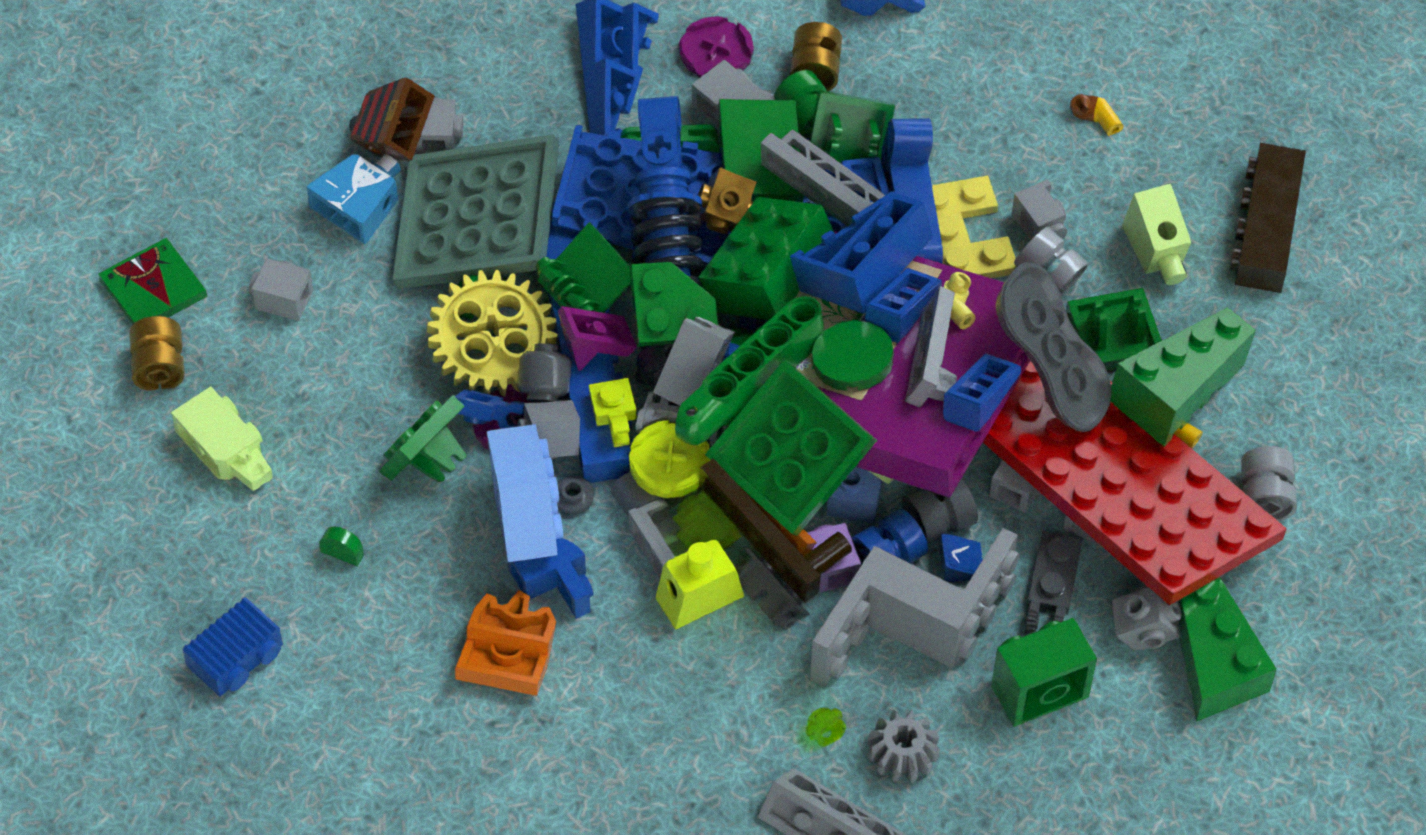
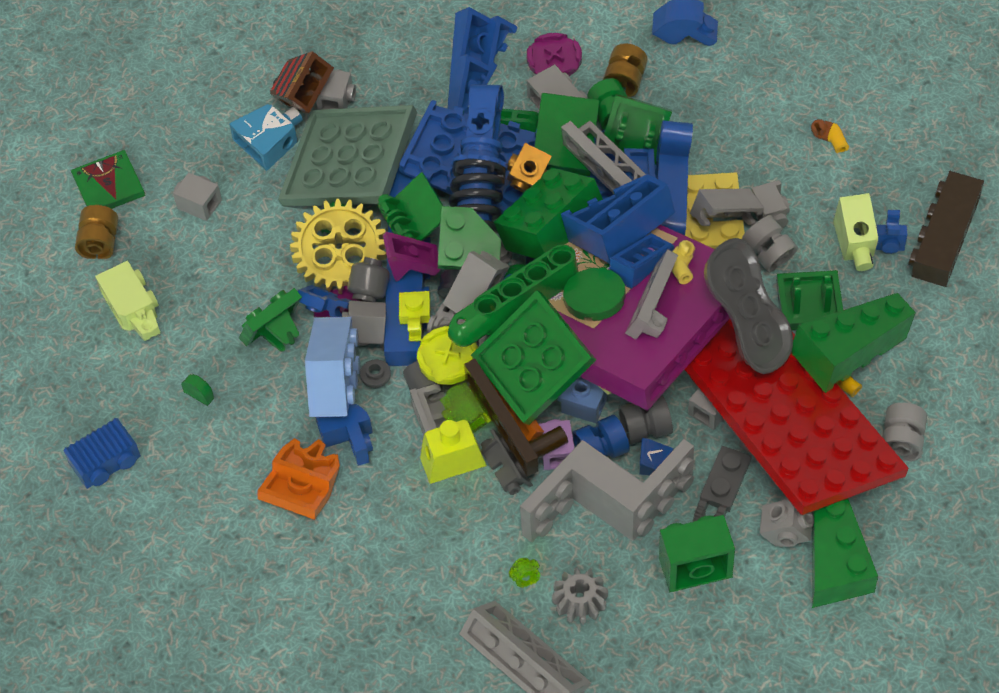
camera: 15 degrees right, 0 degrees up
(977, 395) = (680, 334): blue slope -> none
(986, 218) = (725, 203): none -> light grey hinge
(1204, 232) = (892, 236): none -> blue plate

